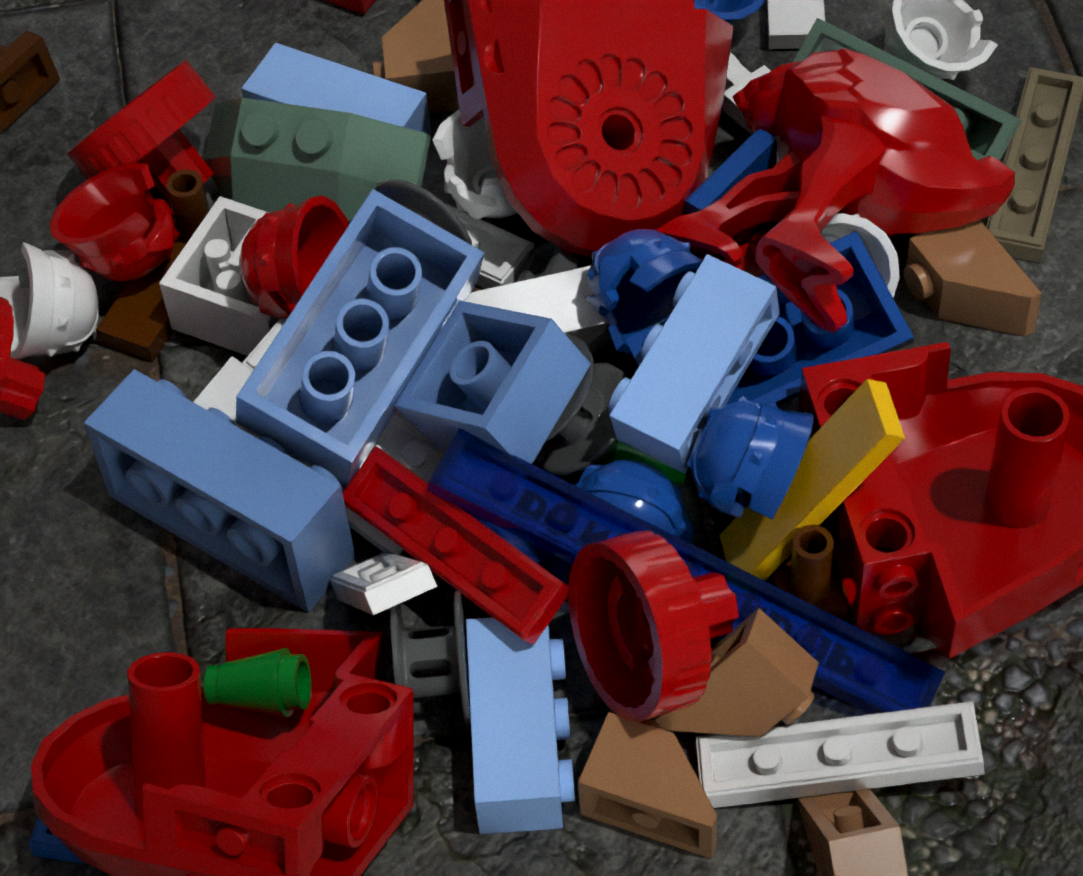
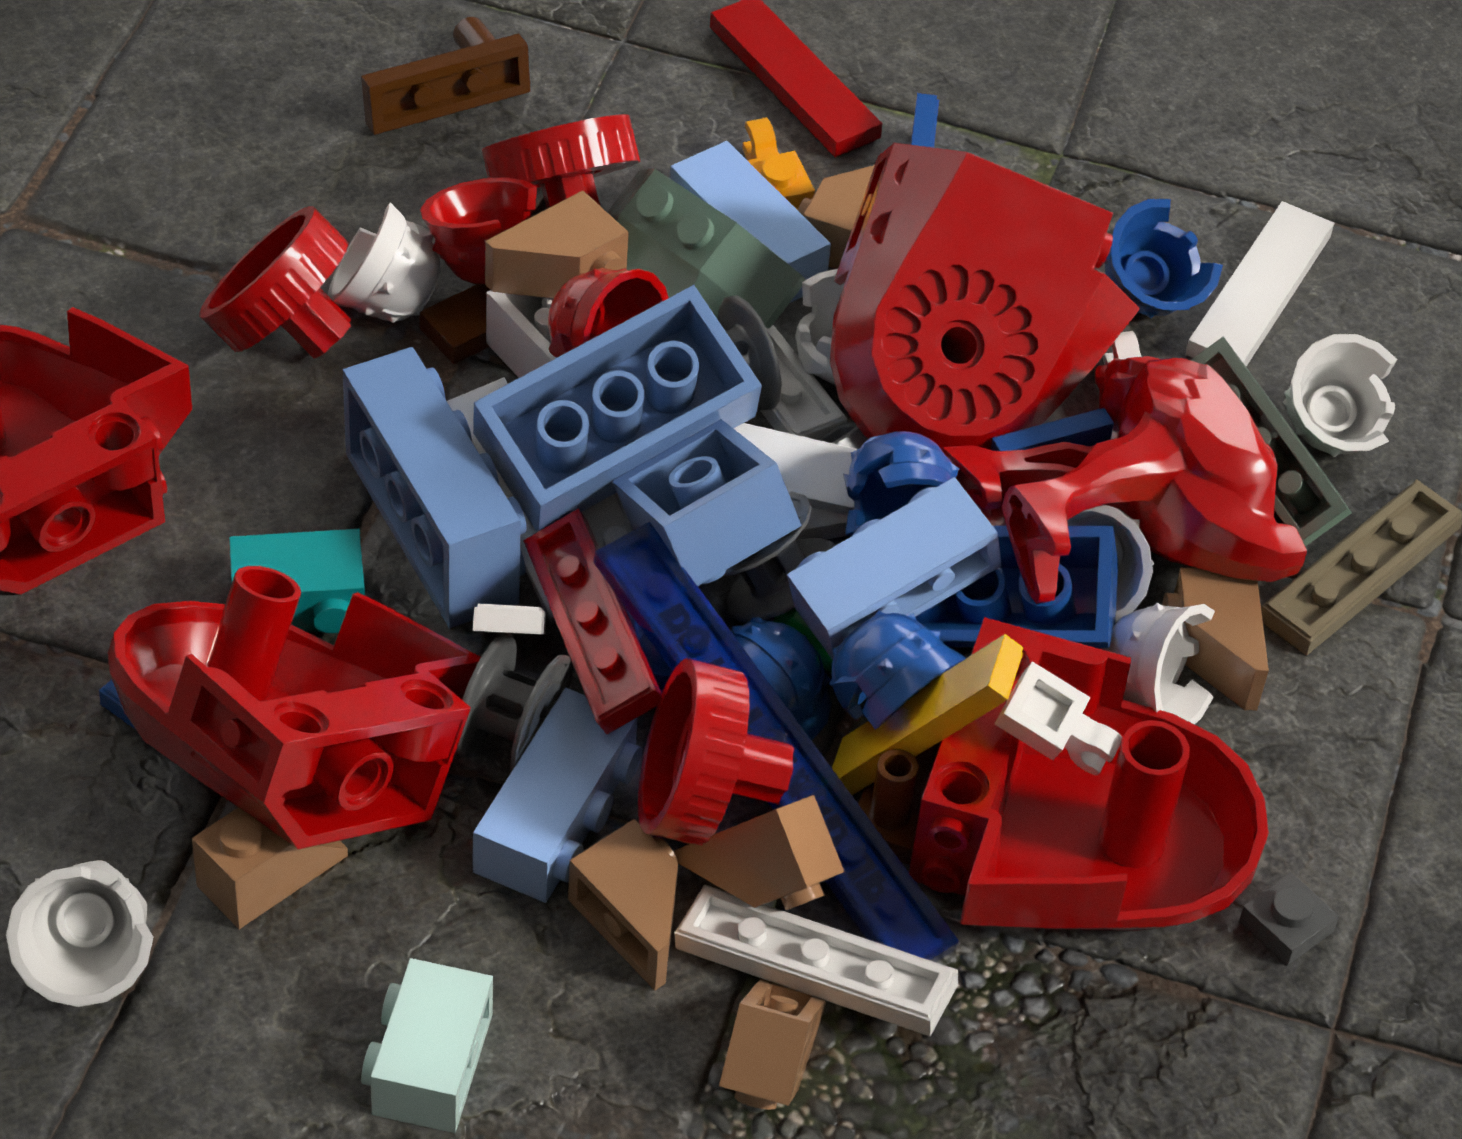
camera: 20 degrees right, 5 degrees down
(158, 618) = (320, 562): none -> teal brick
(207, 214) = (554, 248): none -> medium nougat slope
(261, 683) = (358, 649): green cone -> none
(329, 45) = (781, 170): none -> light orange plate
(937, 316) = (1158, 652): none -> white helmet
(937, 435) = (1050, 717): none -> white plate

